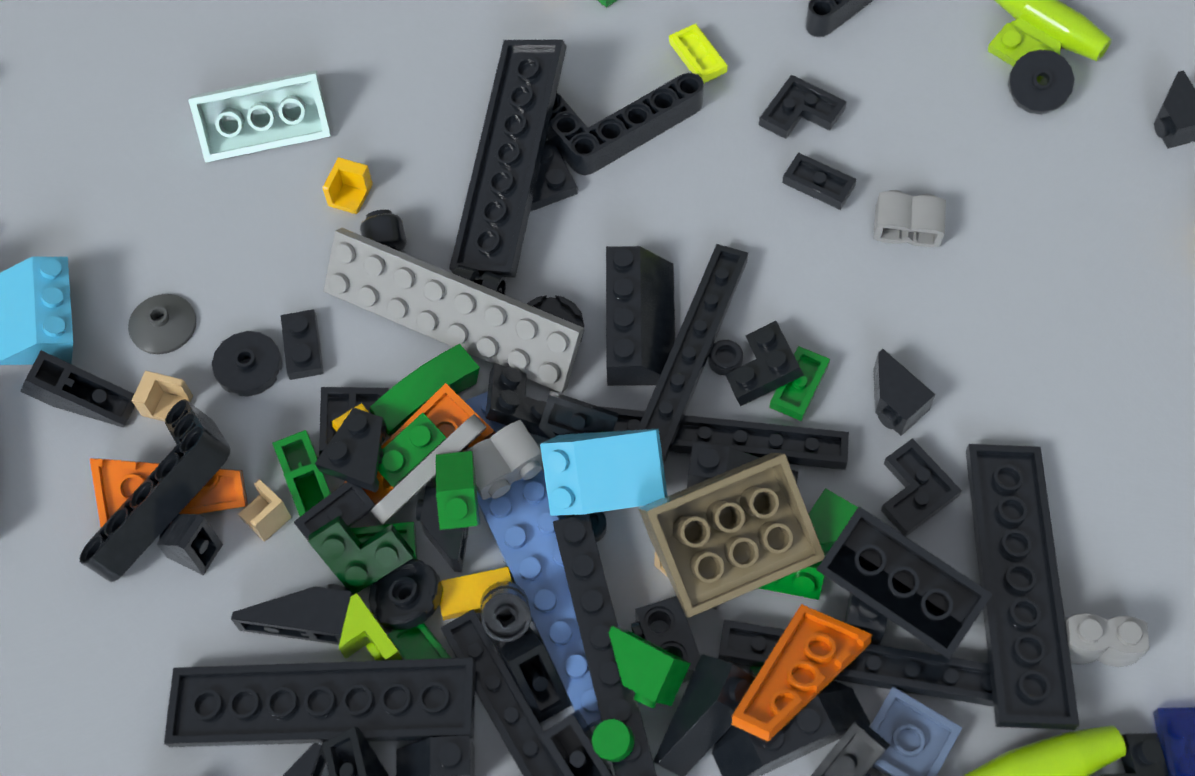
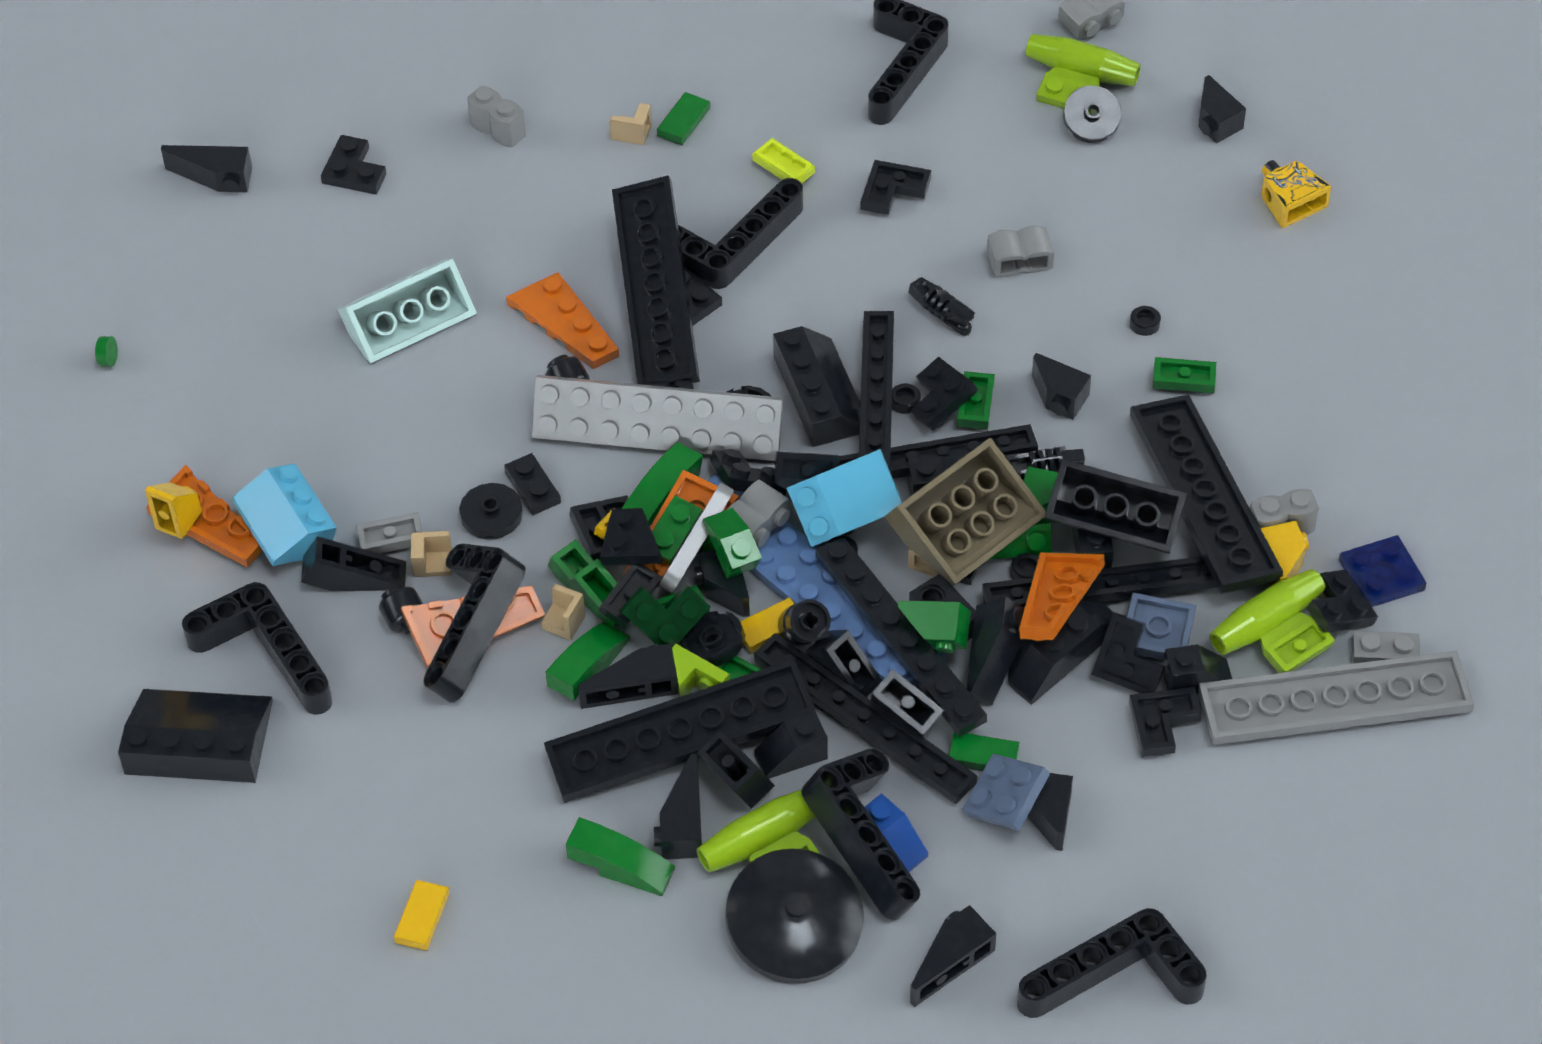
camera: 20 degrees left, 10 degrees down
(102, 444) = (392, 601): none -> black head
(131, 360) = (388, 533): none -> light grey plate
(167, 333) = (409, 498): dark grey dish -> none
(190, 542) = (512, 649): black slope -> none
(263, 575) = (585, 658): none -> green slope
(347, 185) = (516, 347): yellow panel -> none
(412, 166) = (565, 317): none -> orange wing
(613, 740) = (931, 679): green tile -> none
(781, 609) = (1024, 566): none -> black tile
(803, 259) = (942, 305): none -> black hinge
(819, 181) = (931, 240): black plate -> none
(849, 483) = (1045, 459): none -> black hinge
(925, 490) = (1106, 447): black plate -> none
(1021, 338) = (1145, 320): none -> black tile
(1044, 420) = (1184, 375): none -> green plate
(1095, 684) = (1288, 546): none -> yellow slope

